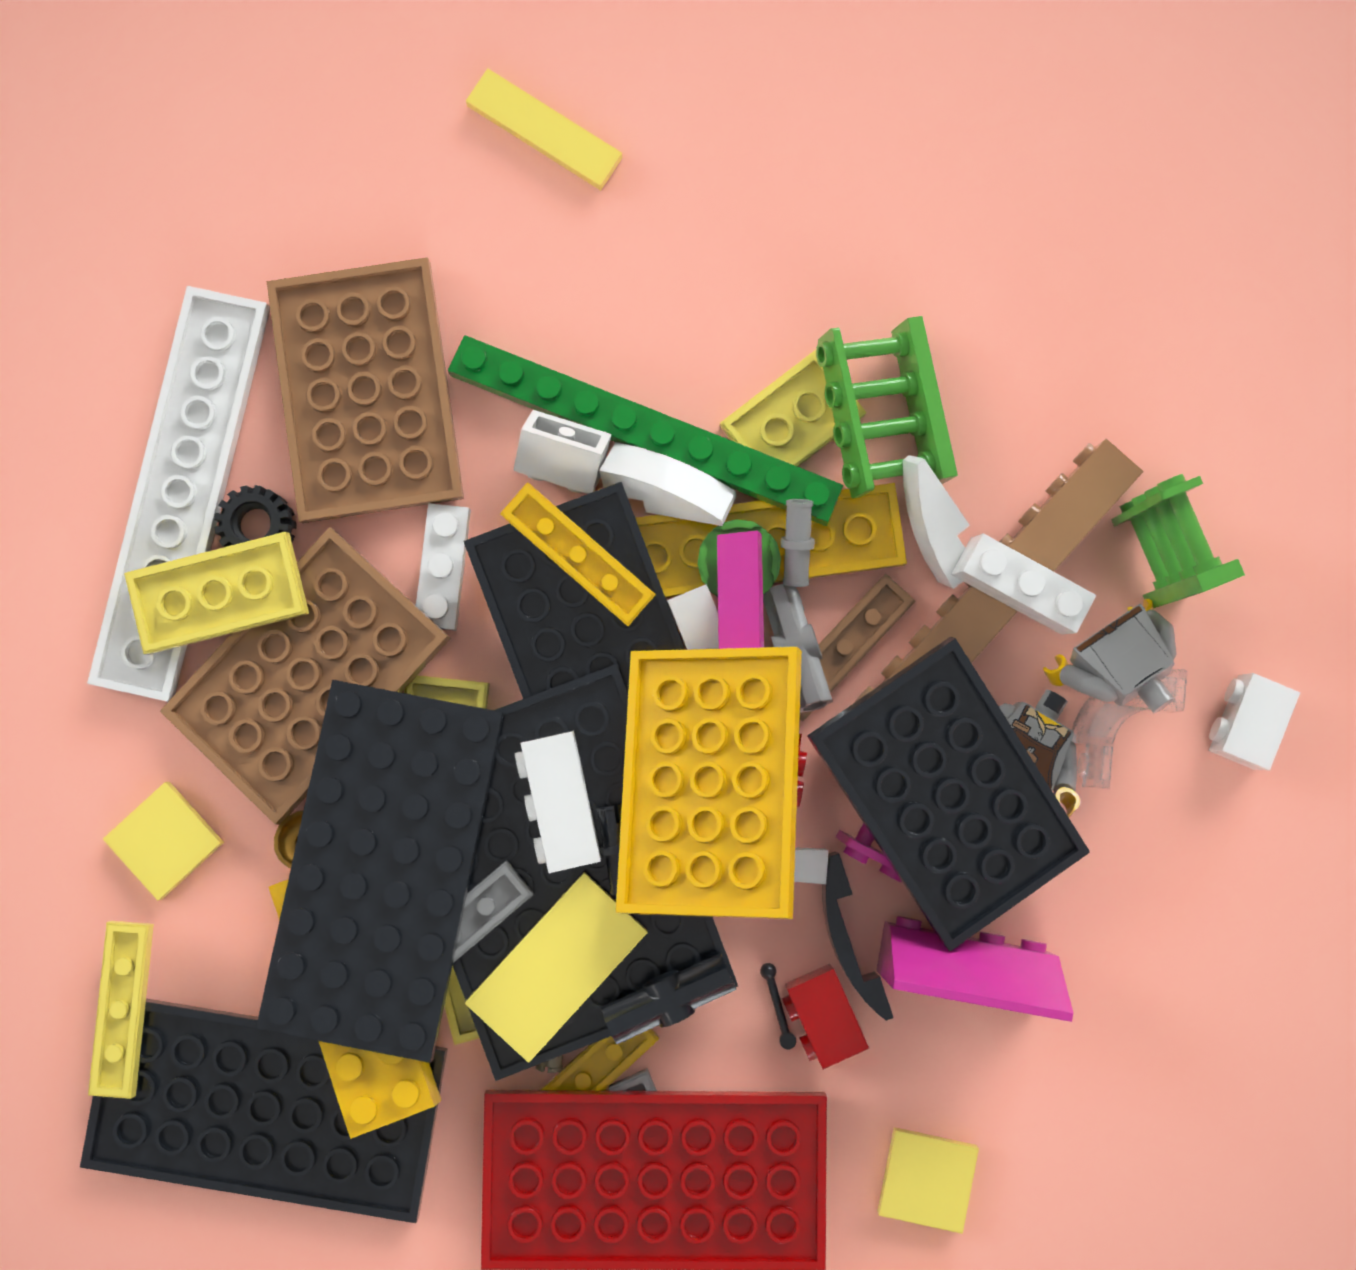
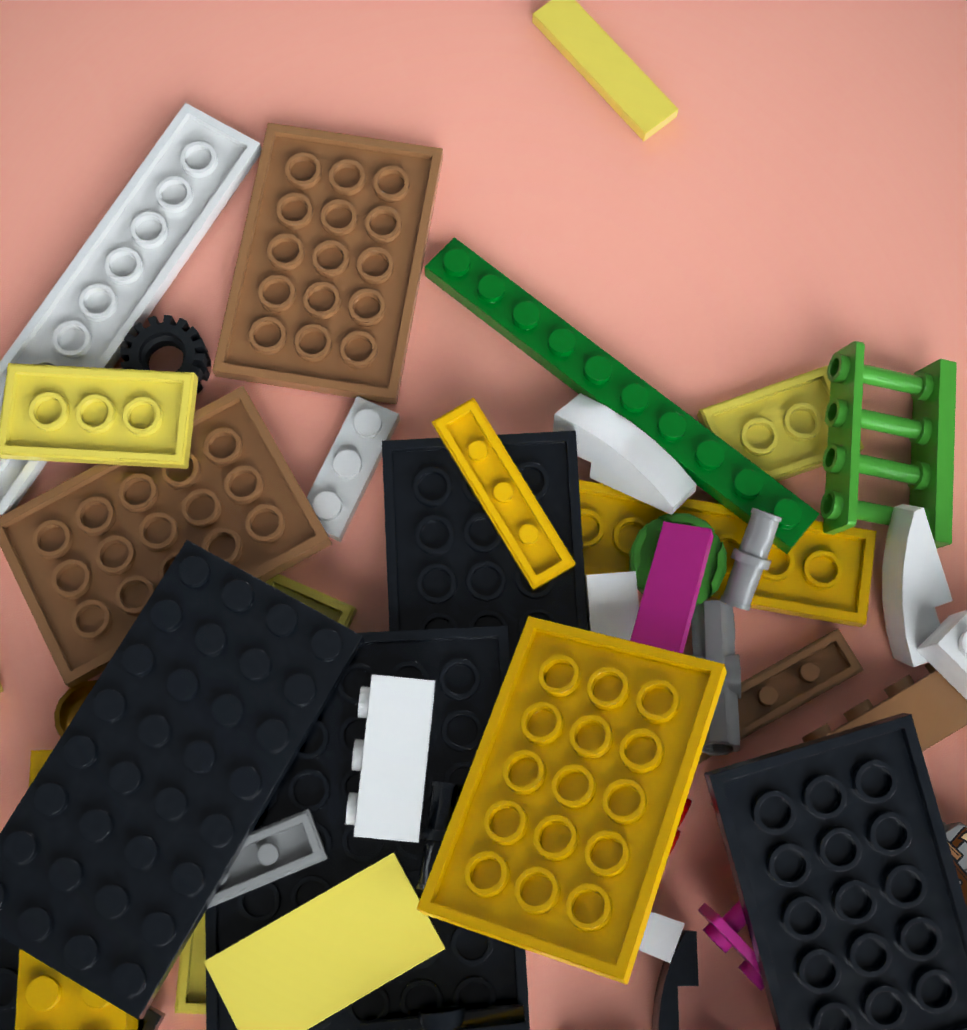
camera: 15 degrees right, 10 degrees down
(561, 452) = (518, 385): white brick -> none

